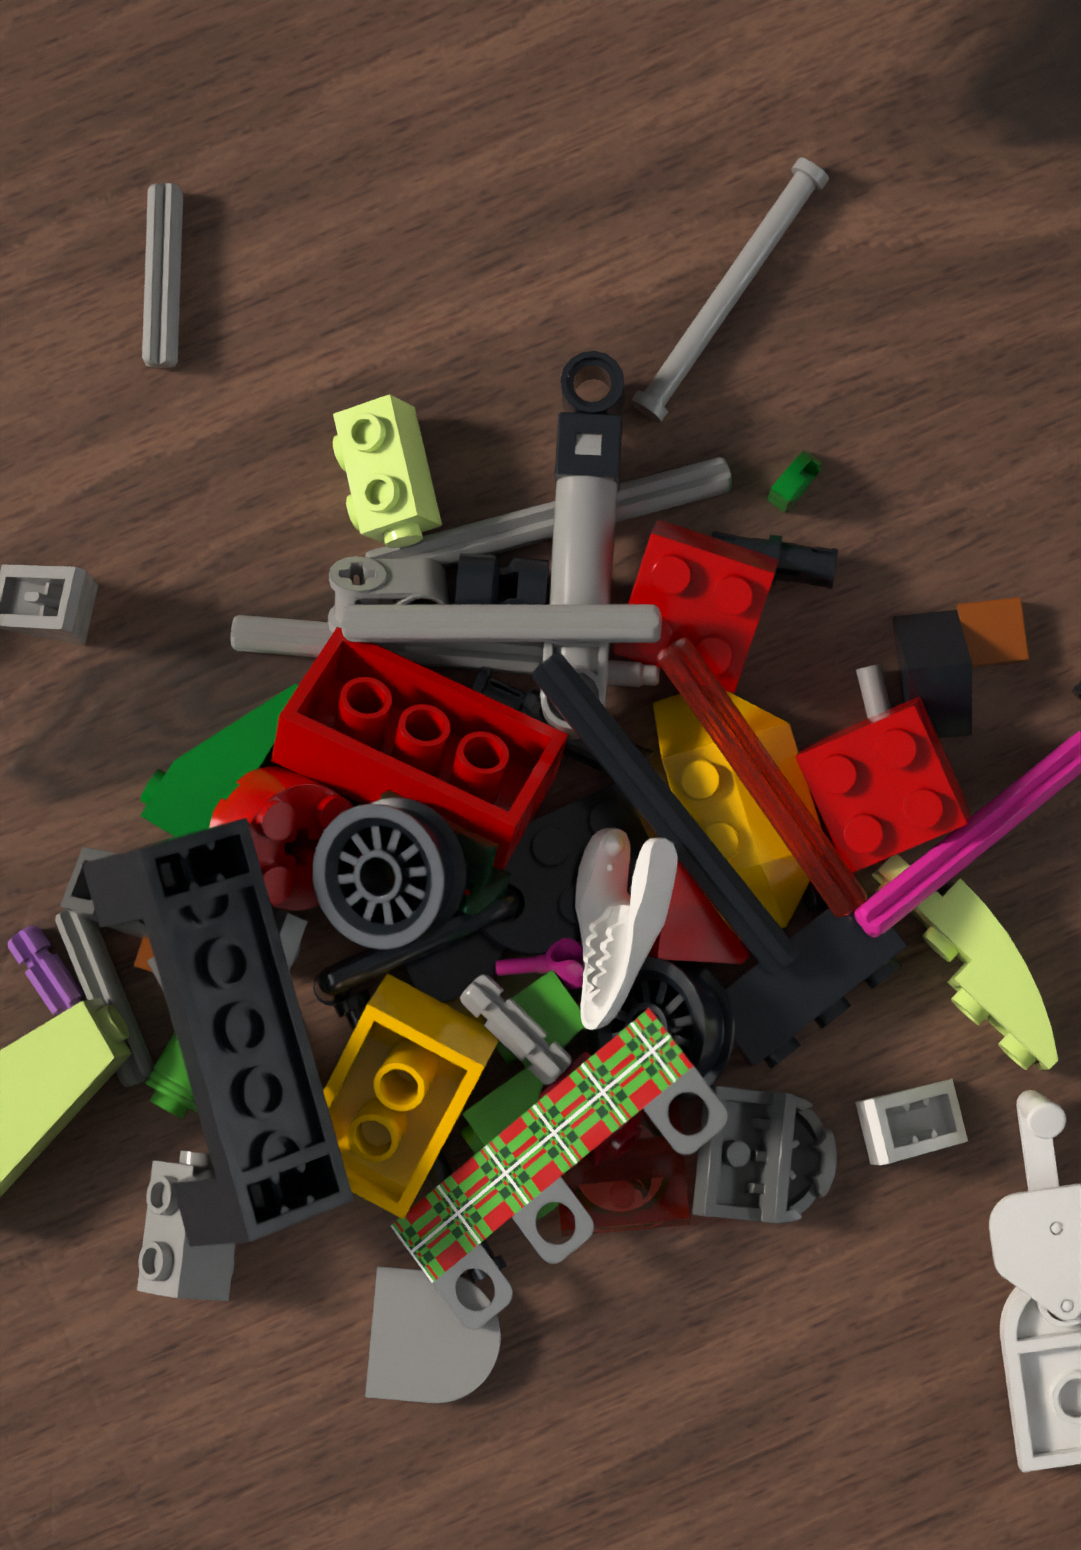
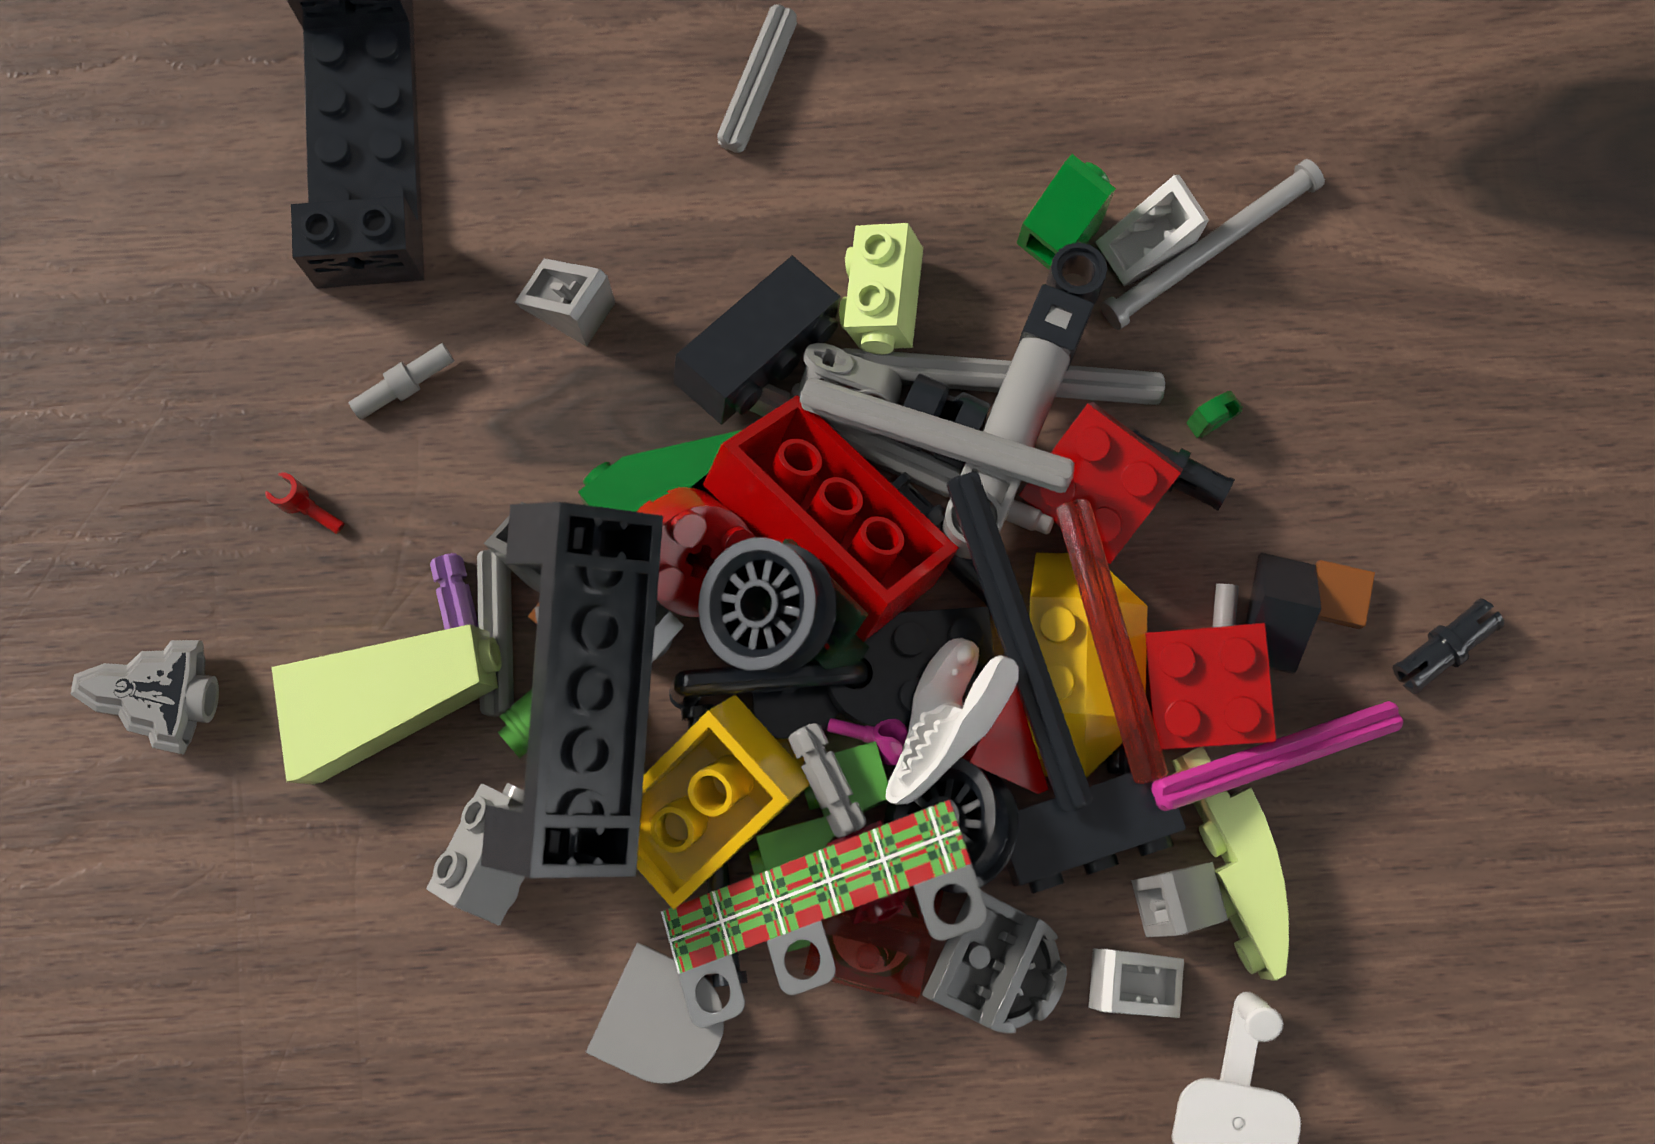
camera: 15 degrees right, 5 degrees down
(273, 580) = (757, 340): none -> black brick
(558, 318) = (1067, 210): none -> green slope
(659, 304) = (1154, 232): none -> white slope
(926, 1021) = (1179, 901): none -> light grey slope

